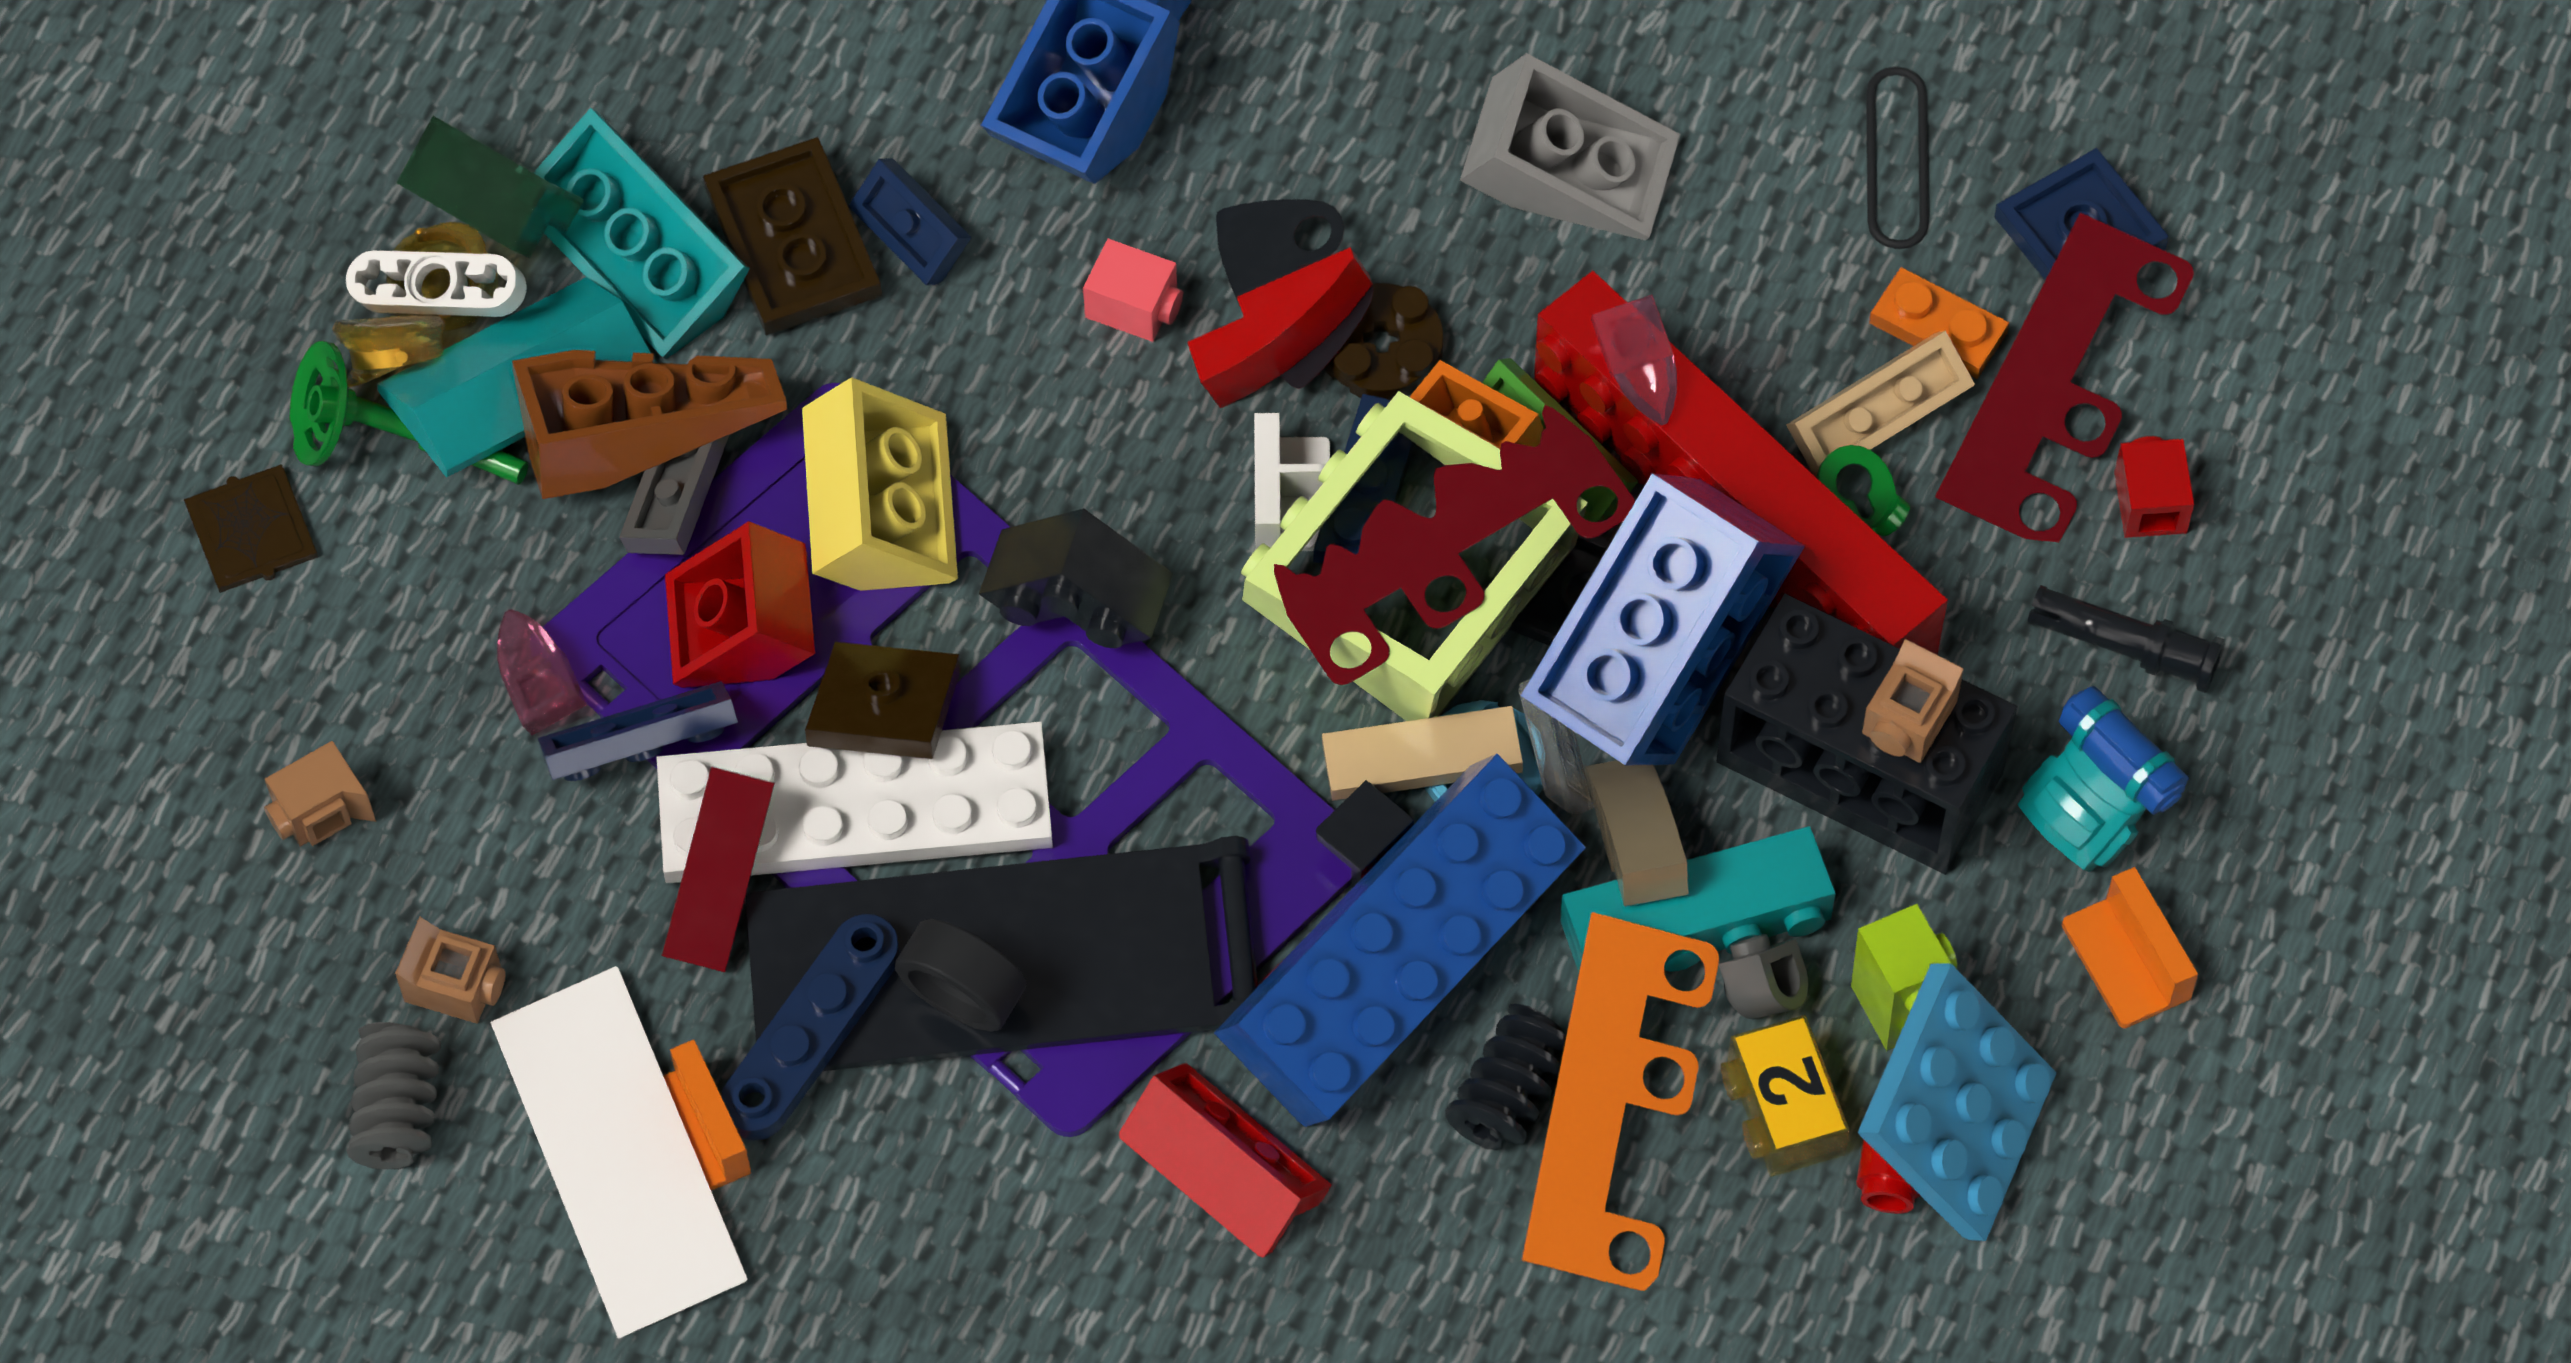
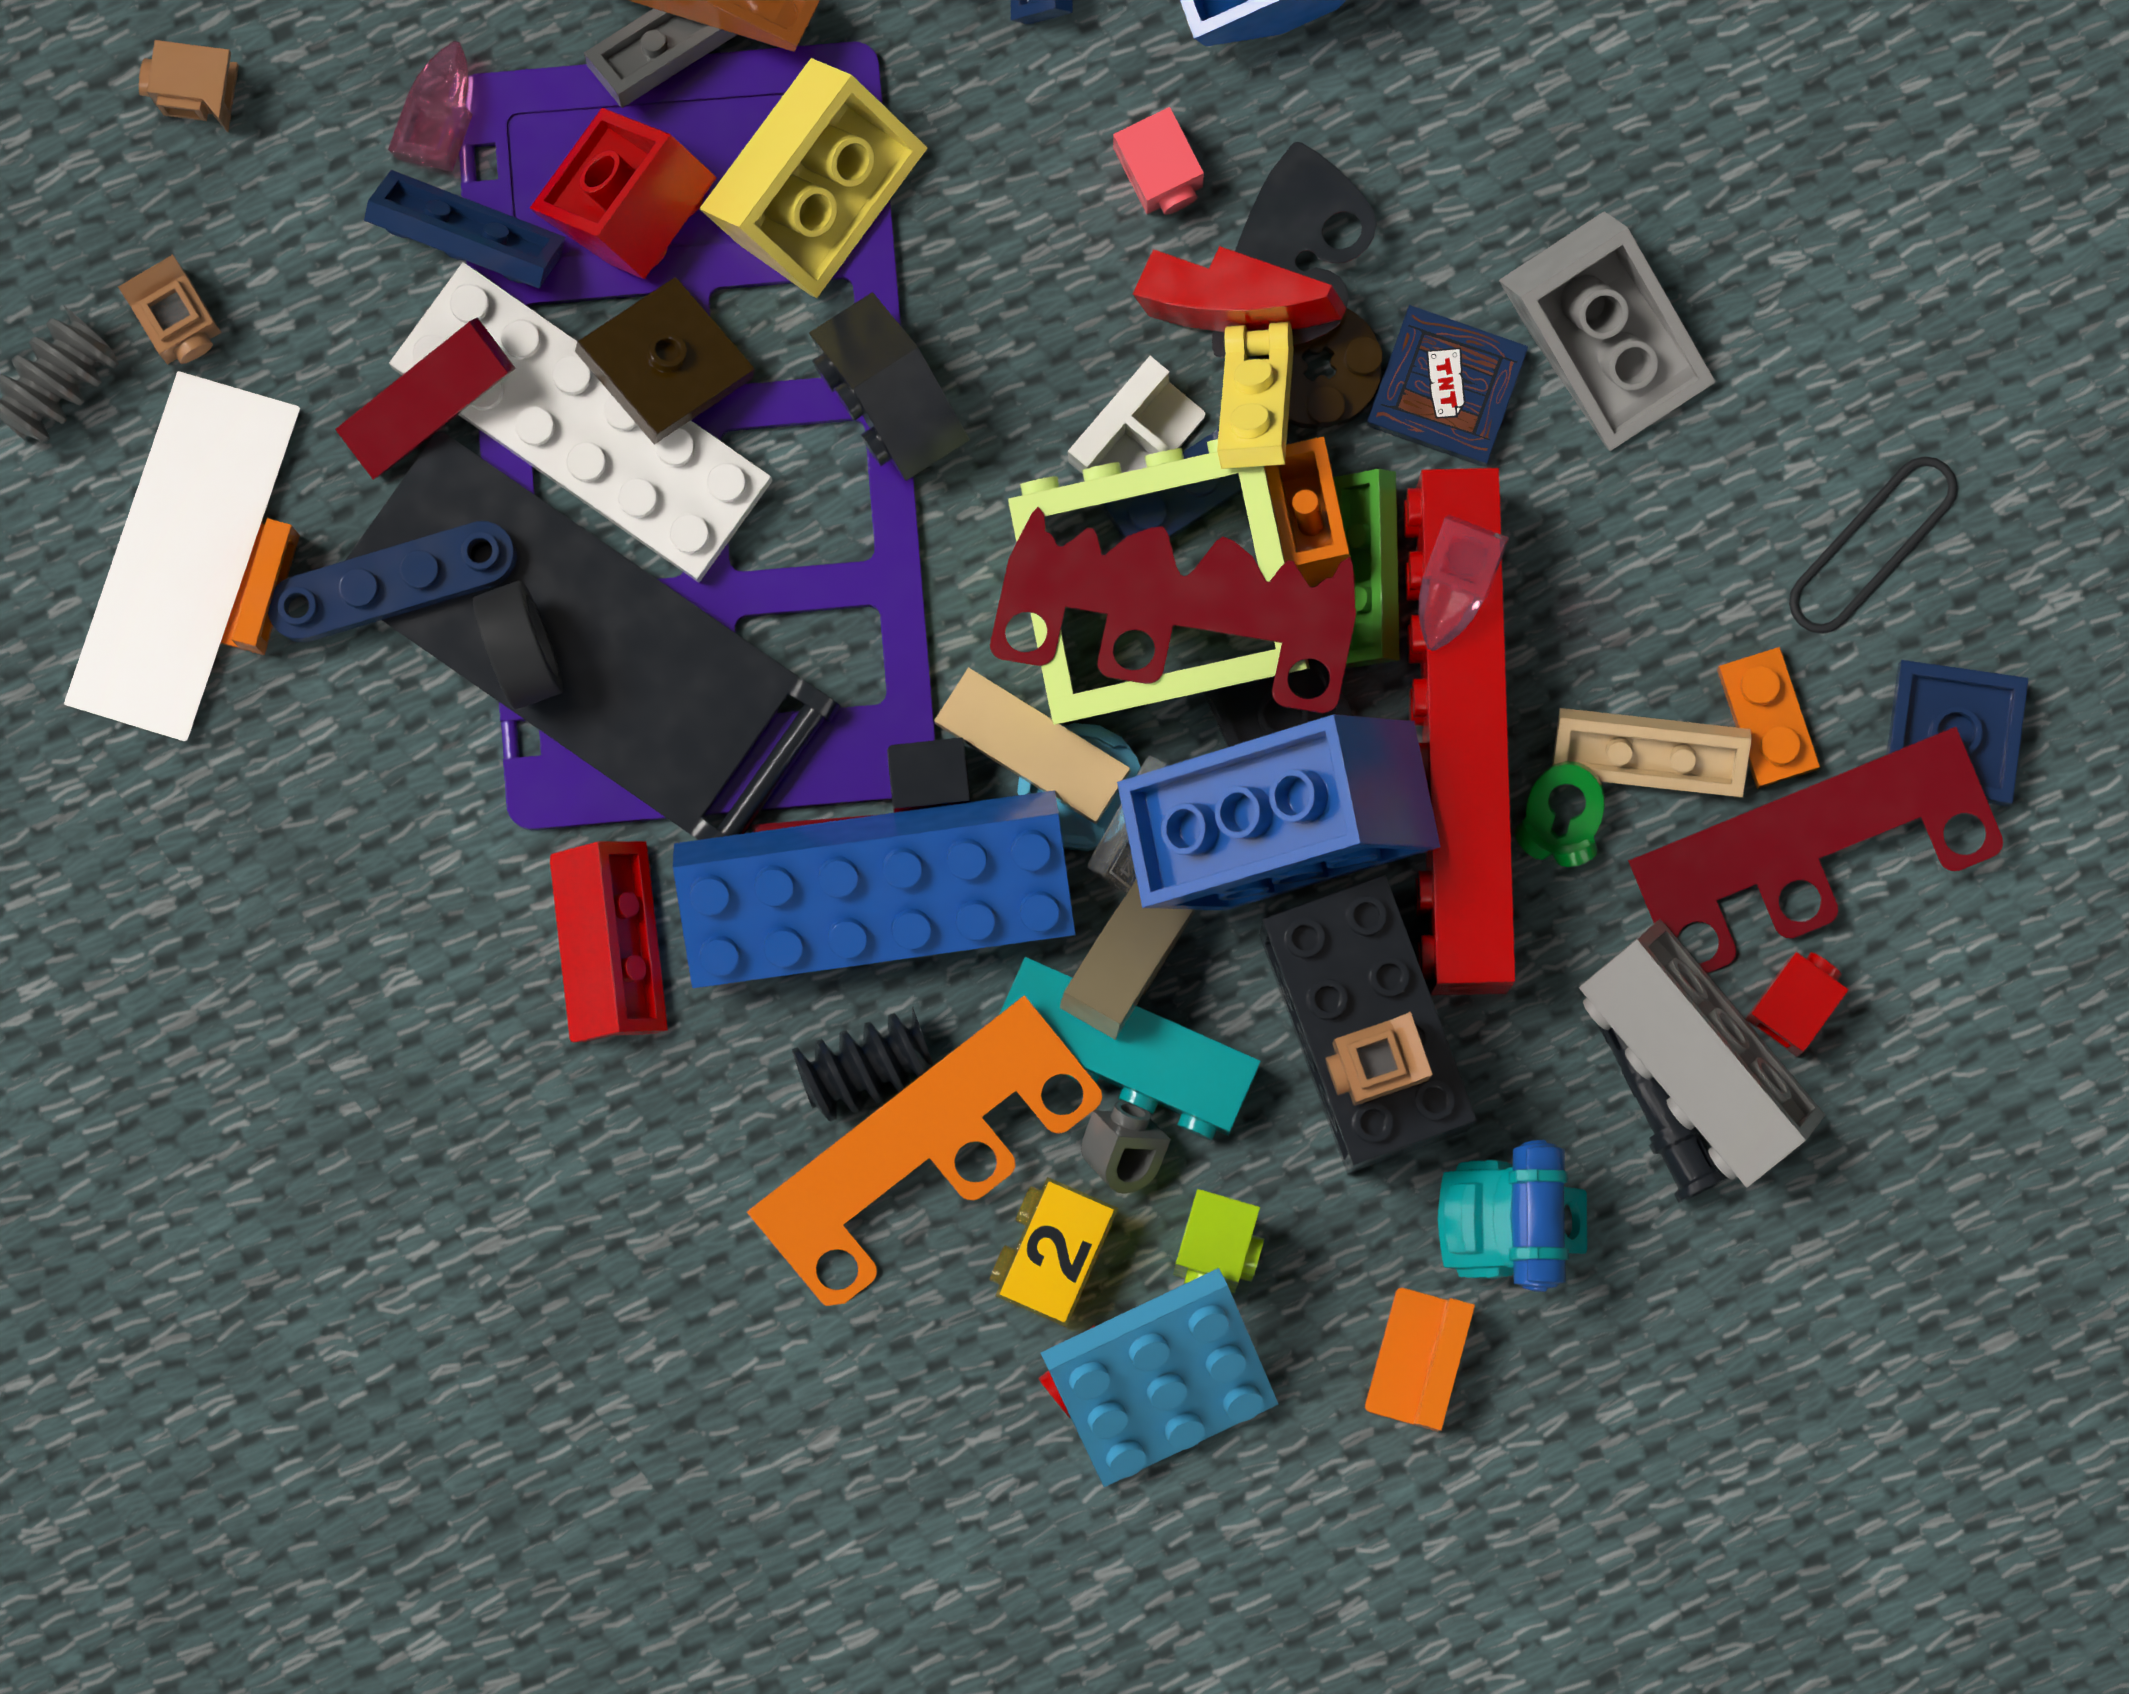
camera: 45 degrees right, 20 degrees up
(1363, 368) = (1255, 396): none -> light yellow plate
(1486, 282) = (1447, 386): none -> tile
(2124, 563) = (1701, 1054): none -> light grey slope

